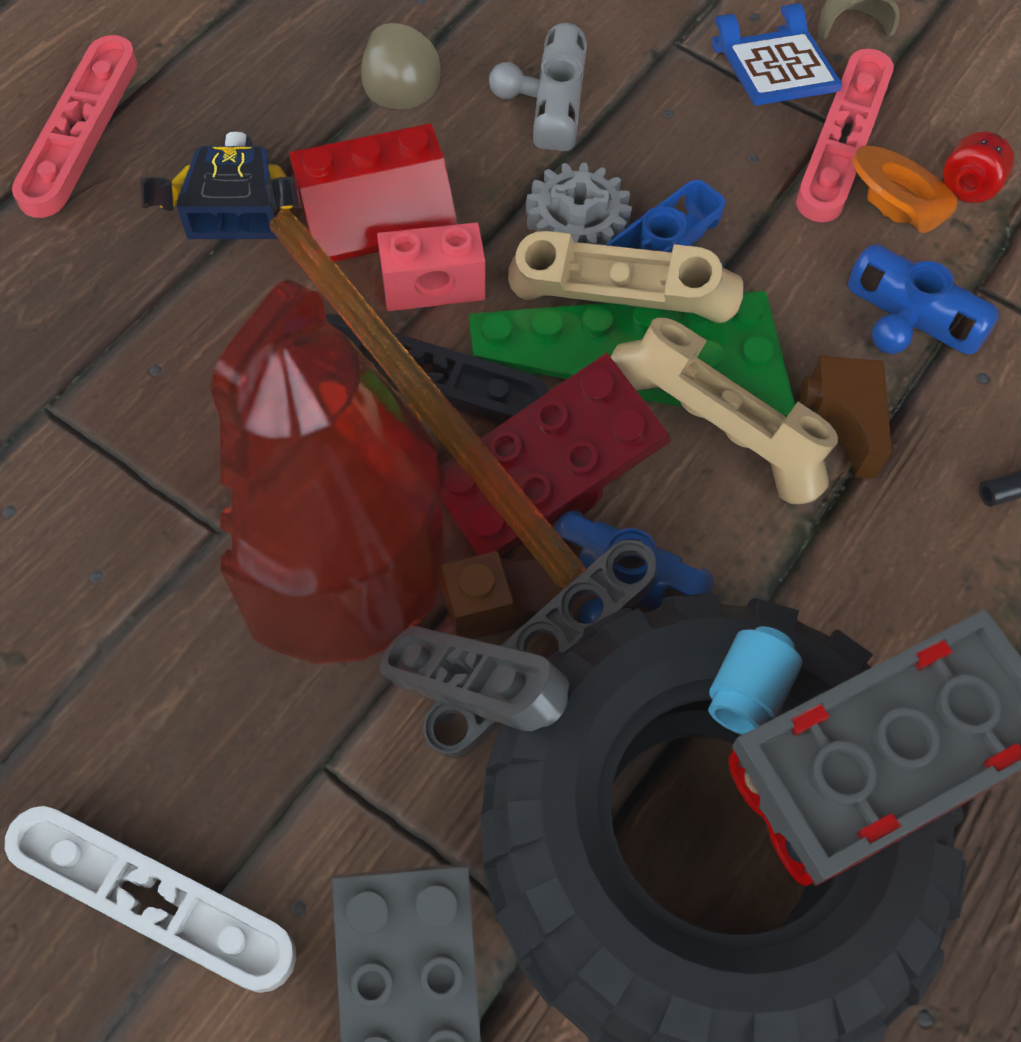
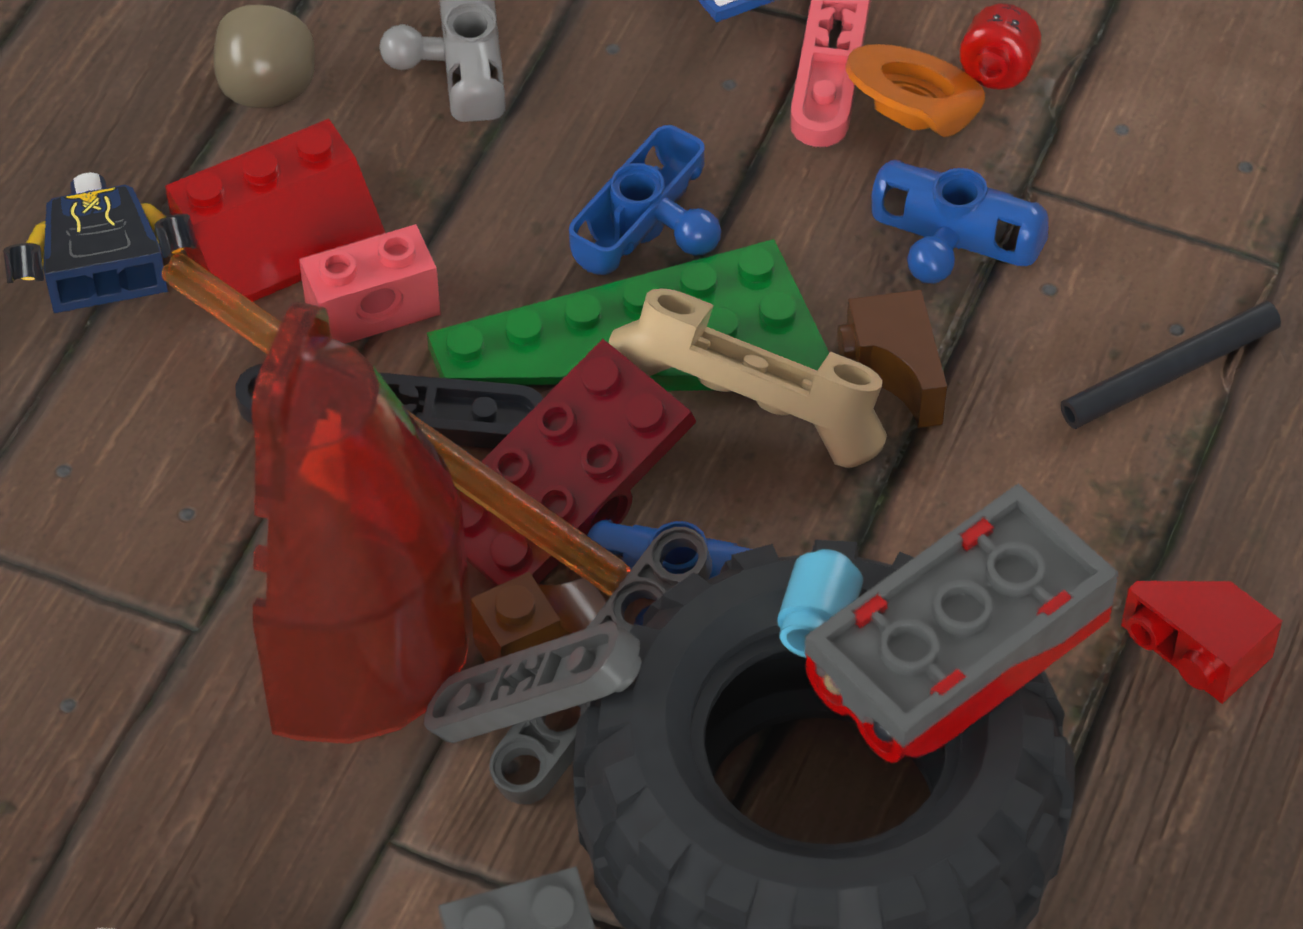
camera: 10 degrees left, 10 degrees down
(579, 205) = (528, 187): light grey gear -> none
(681, 281) = (666, 246): tan plate -> none

